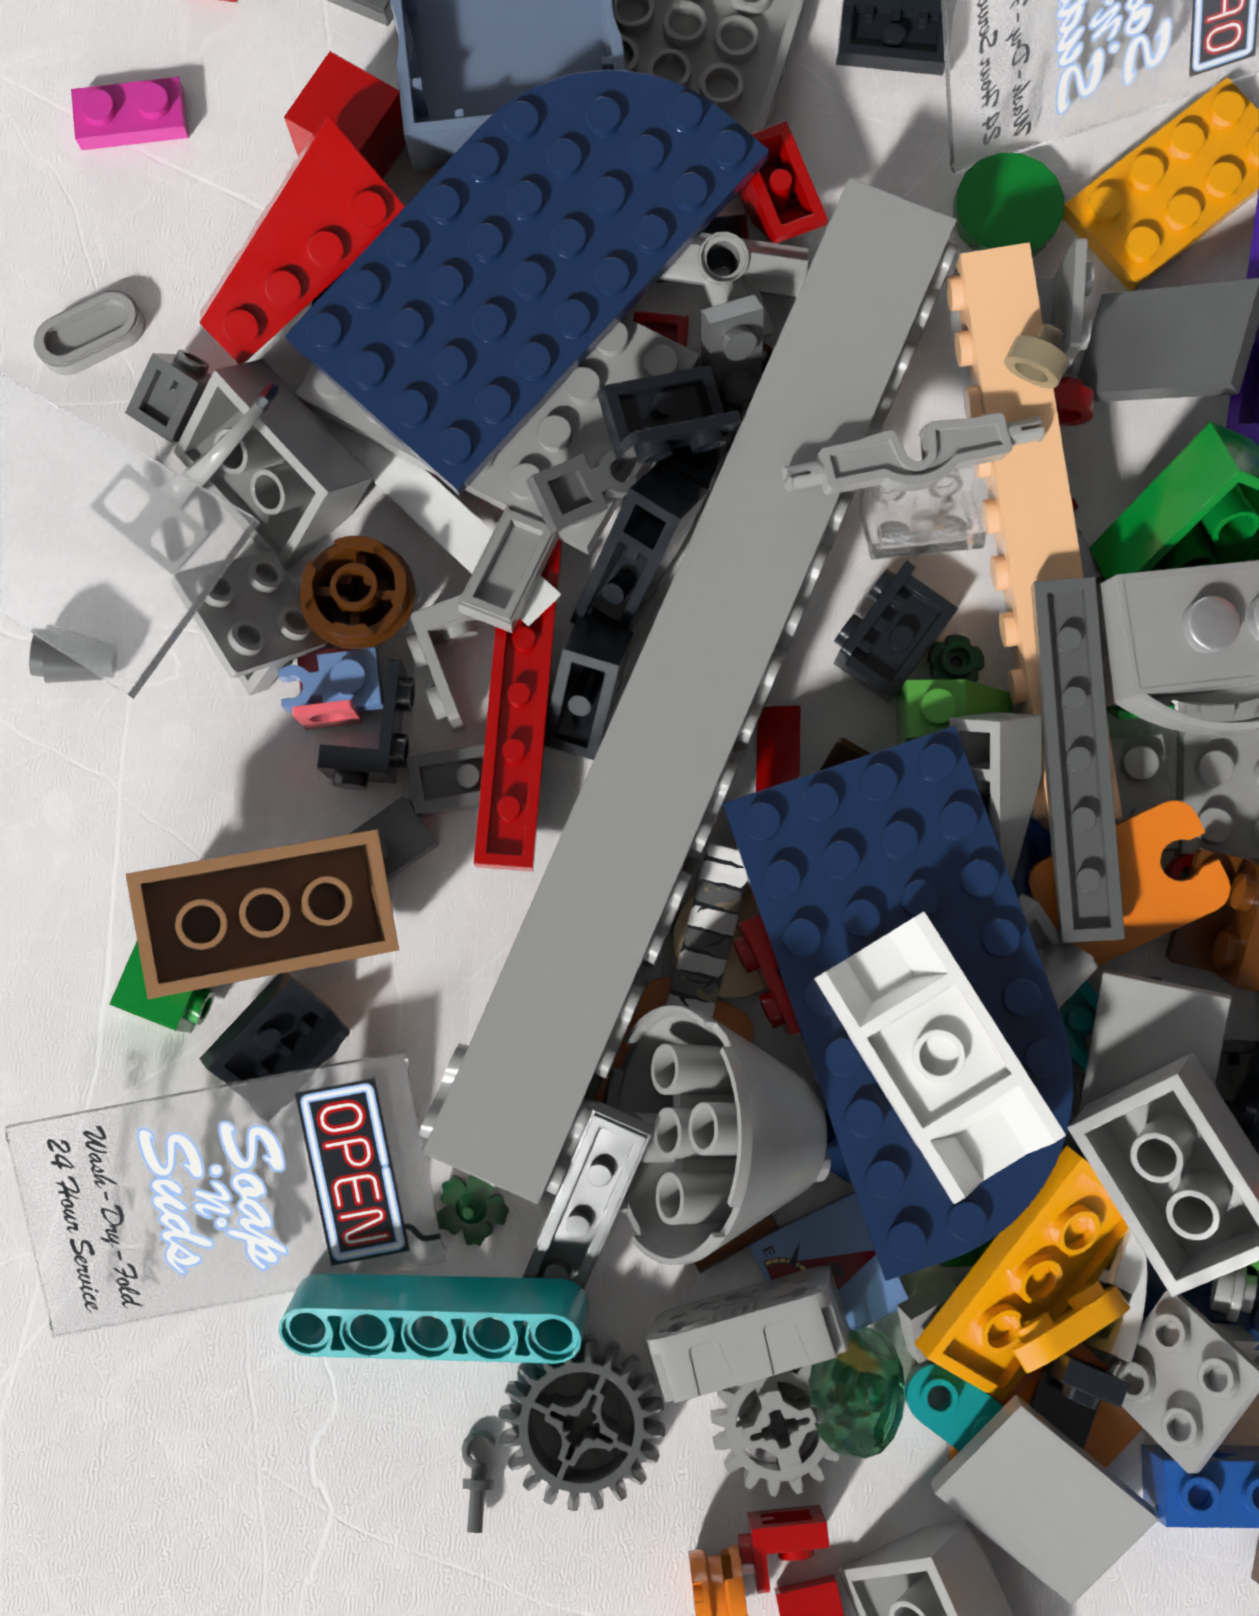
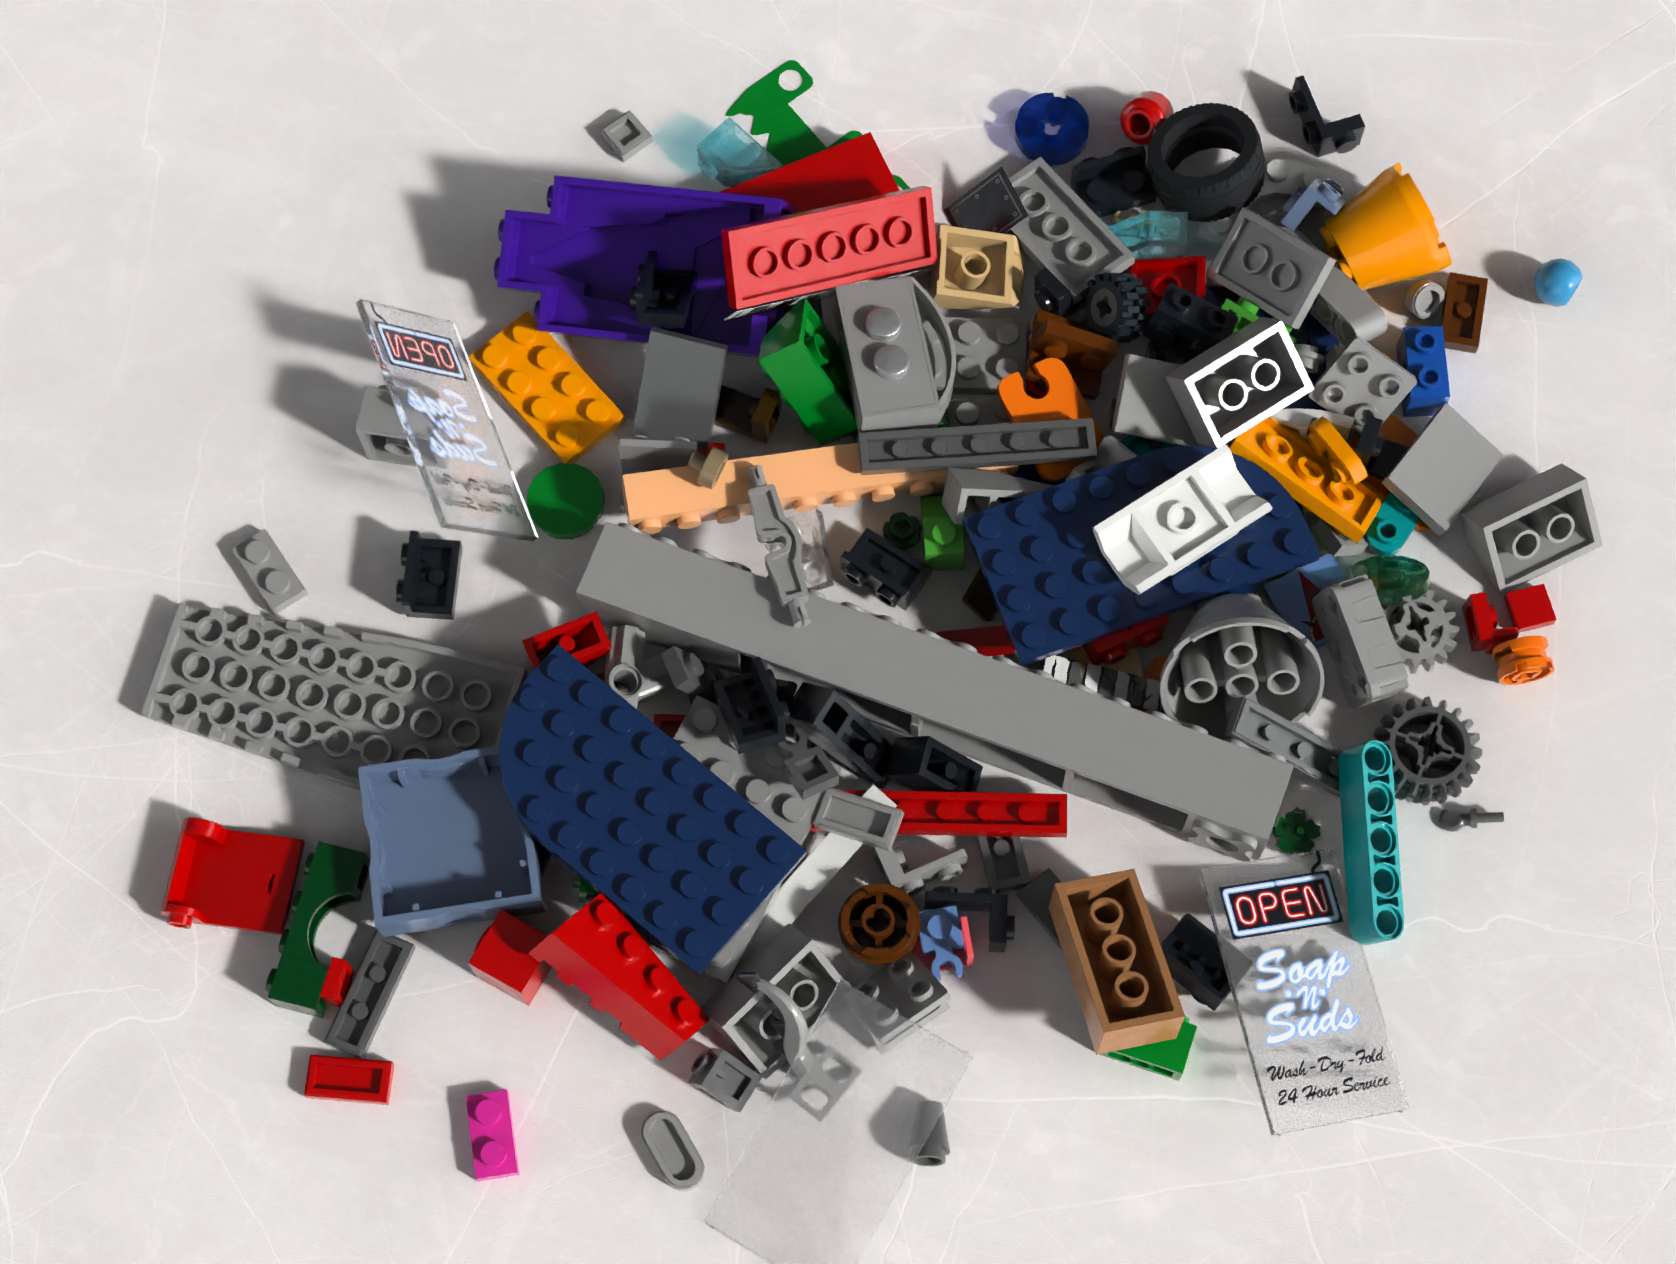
camera: 90 degrees left, 10 degrees down
(1143, 444) = (749, 414): none -> dark brown bracket

